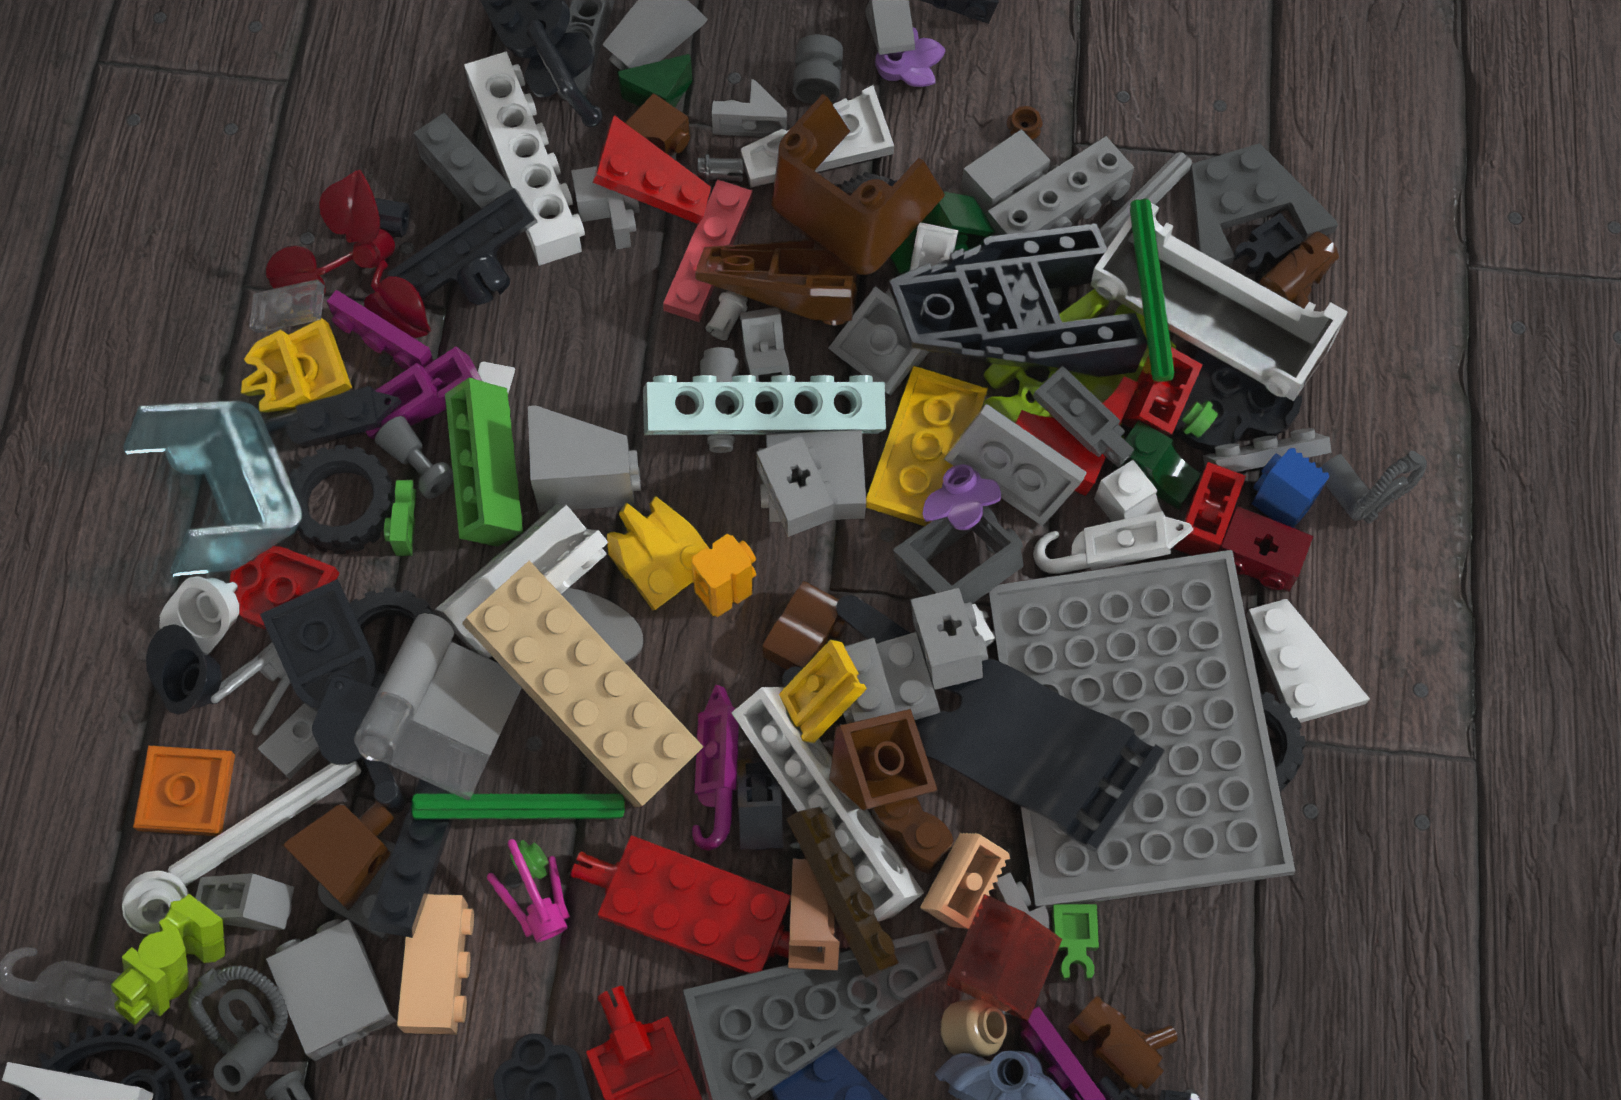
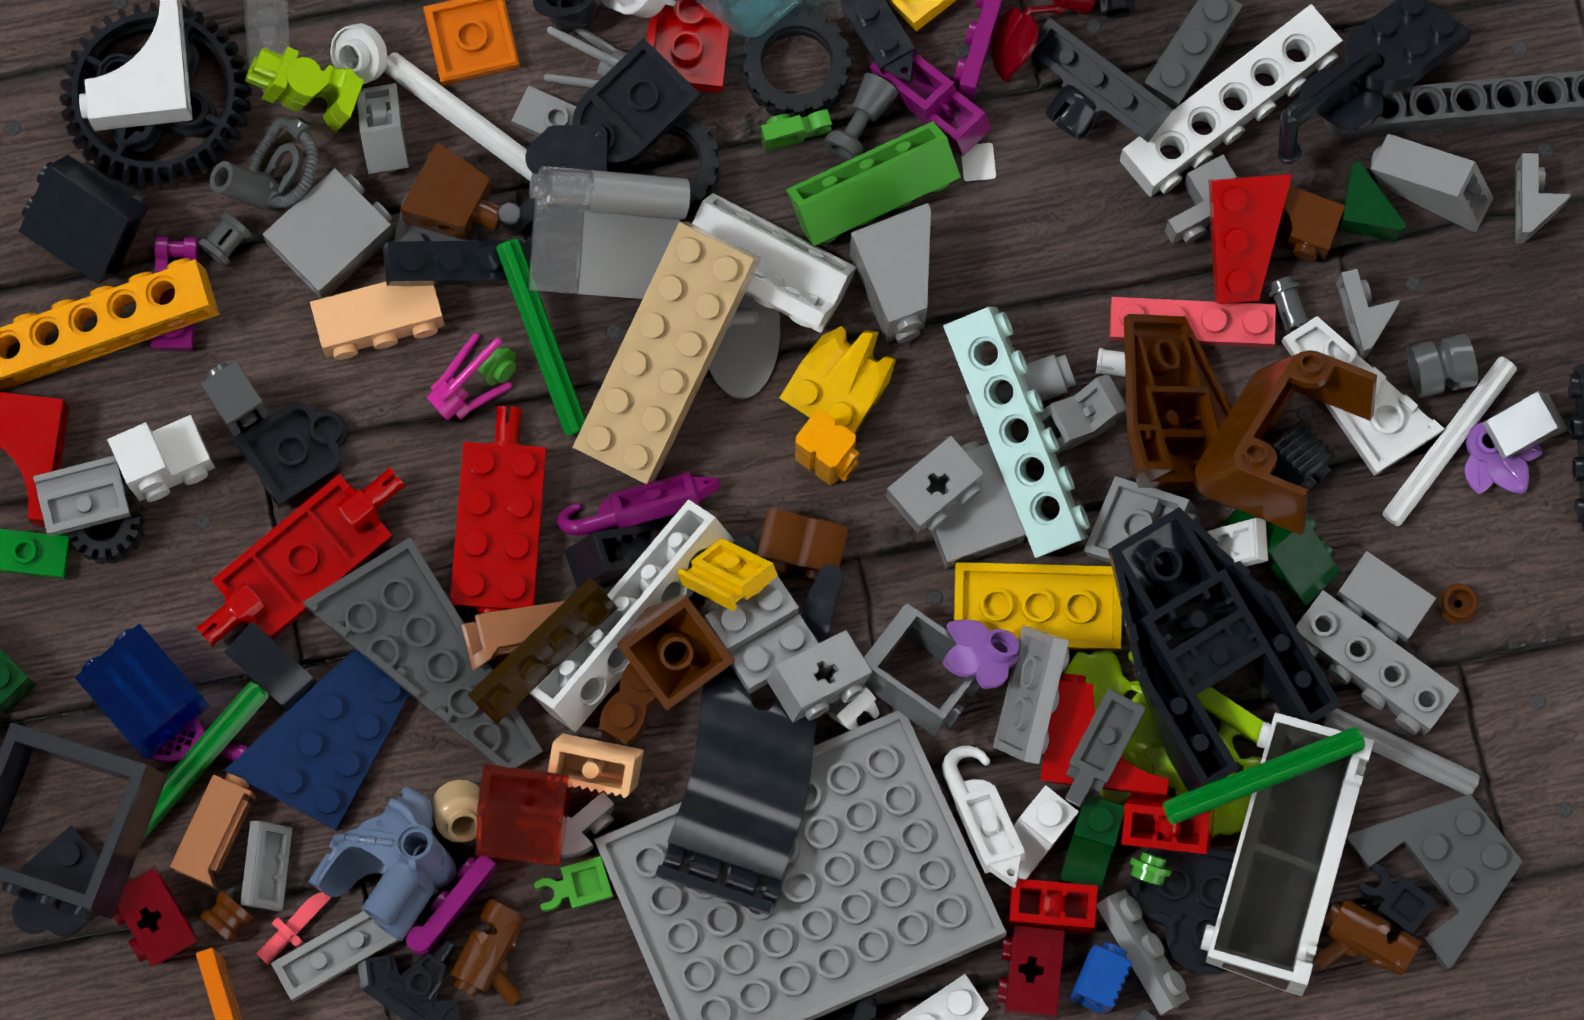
camera: 75 degrees right, 10 degrees up
(886, 93) = (1449, 441): none -> white axle

